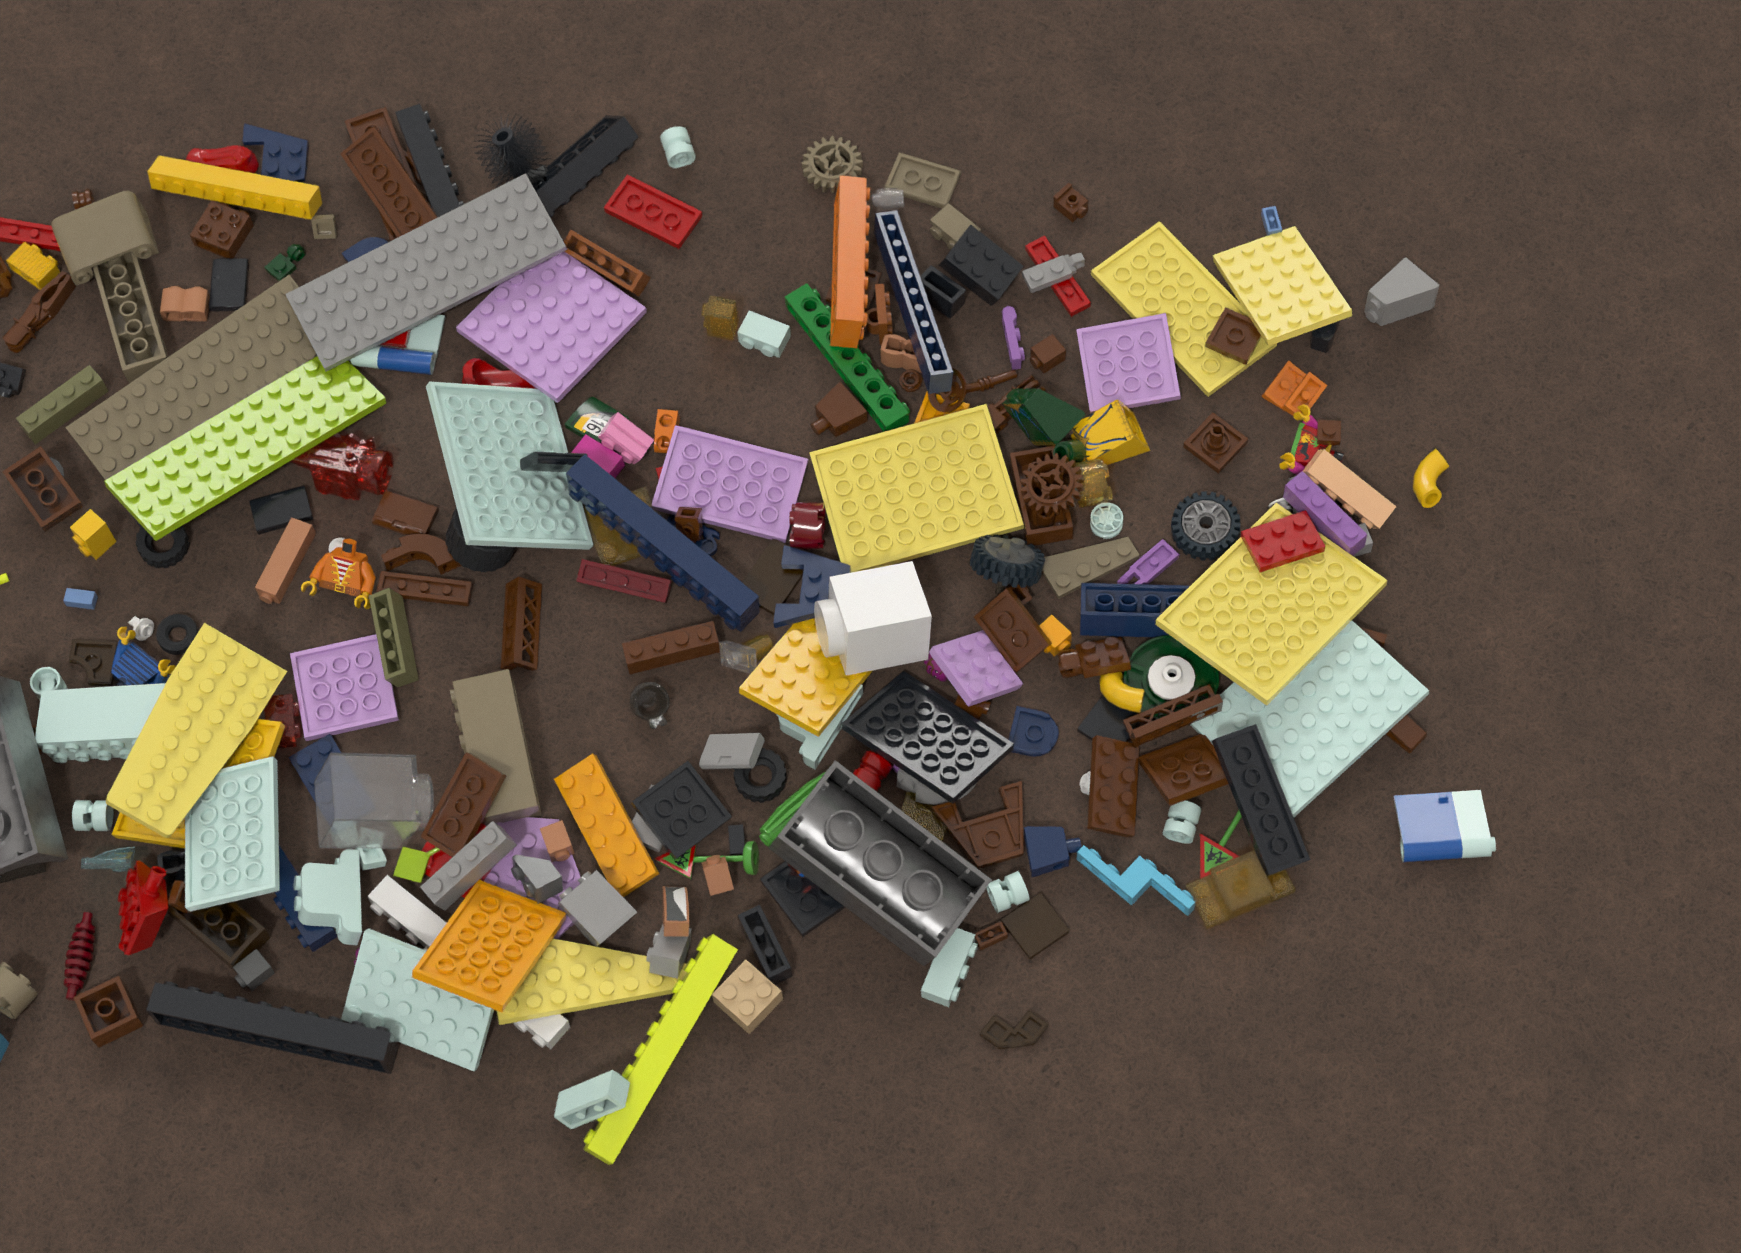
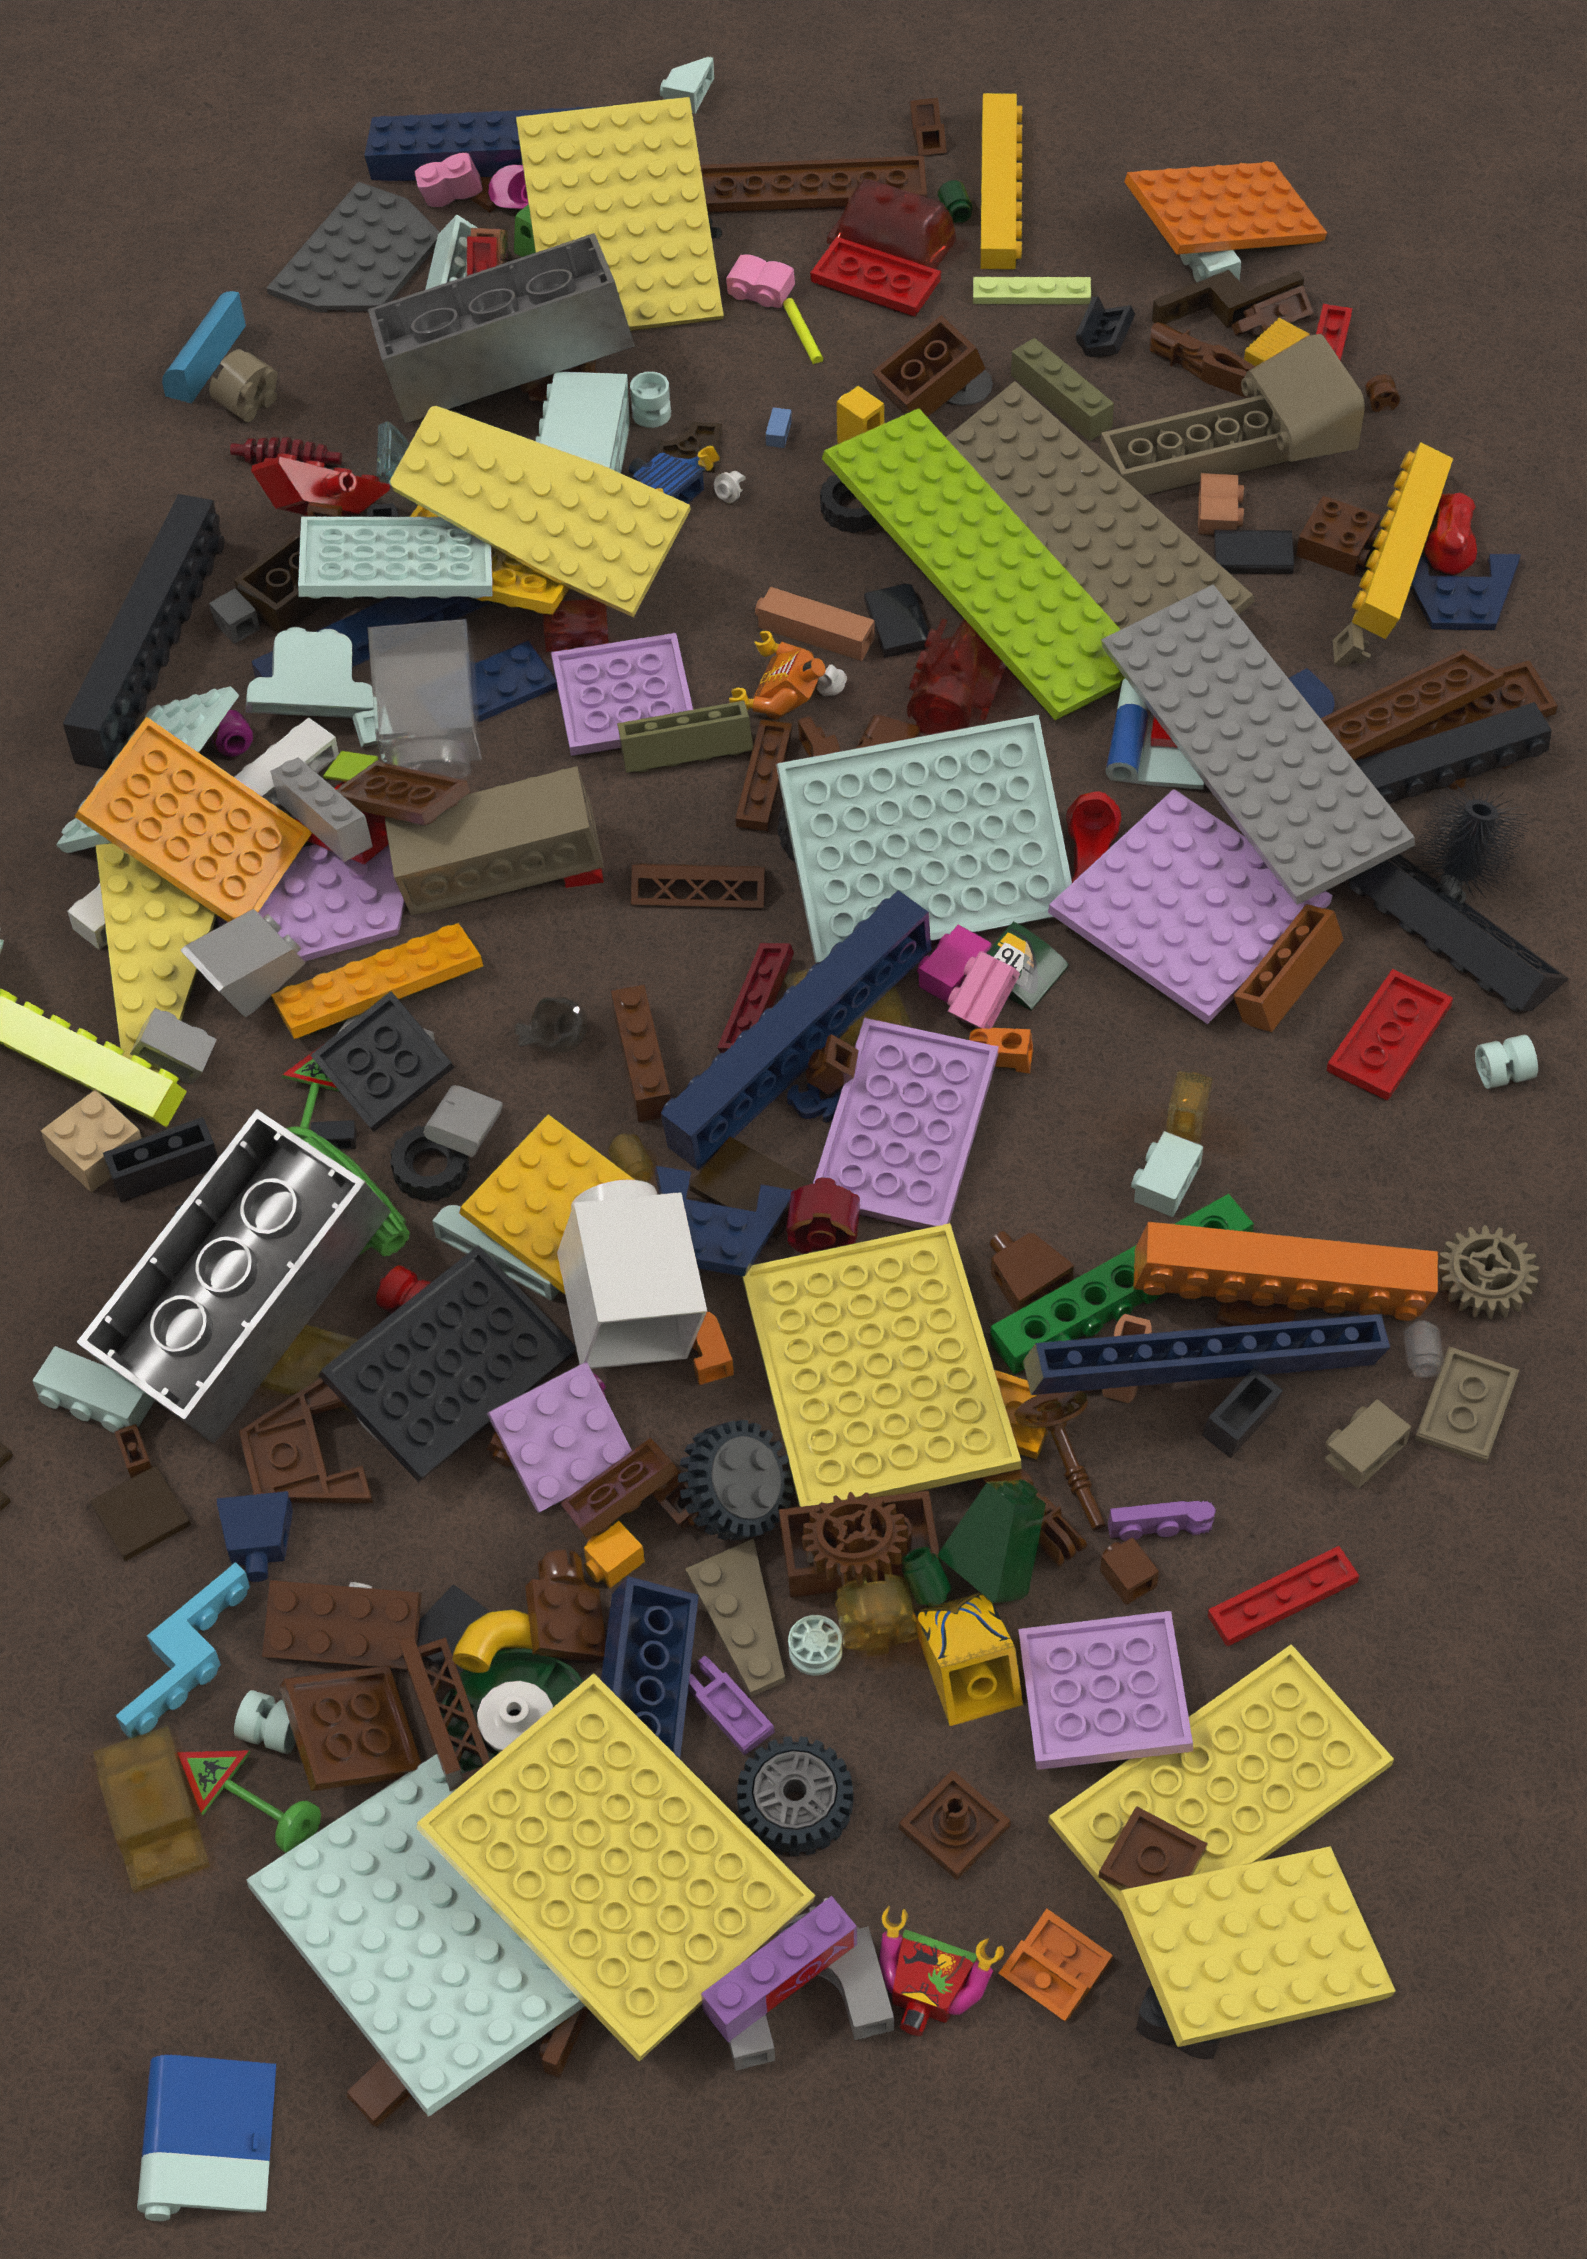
camera: 90 degrees right, 10 degrees down
(108, 1011) = (203, 472): reddish brown brick -> none
(169, 624) = (715, 510): black tyre -> none
(282, 266) = (1285, 605): dark green plate -> none
(538, 877) = (298, 891): slope -> none
(549, 461) = (929, 876): black piece -> none
(557, 841) = (351, 915): nougat brick -> none
(675, 911) = (228, 1048): slope -> none
(717, 875) = (280, 1101): nougat brick -> none
(738, 656) = (612, 1125): clear plate -> none
(880, 313) = (1195, 1314): dark orange plate -> none
(981, 265) = (1288, 1467): black brick -> none
(1007, 892) = (193, 1470): light aqua wheel -> none
(1033, 732) = (457, 1523): dark blue tile -> none
(1052, 271) = (1282, 1579): light grey hinge -> none
(1072, 210) = (1422, 1634): reddish brown brick -> none
(1260, 800) = (268, 1822): black plate -> none
(1271, 220) = (1404, 1951): medium blue piece -> none
(1282, 541) = (729, 1889): red plate -> none
(1328, 432) = (951, 1997): reddish brown plate -> none
(1349, 490) = (833, 2019): light nougat brick -> none
(1401, 294) = (1241, 2151): light grey slope -> none
(1425, 479) = (867, 2173): yellow cylinder -> none

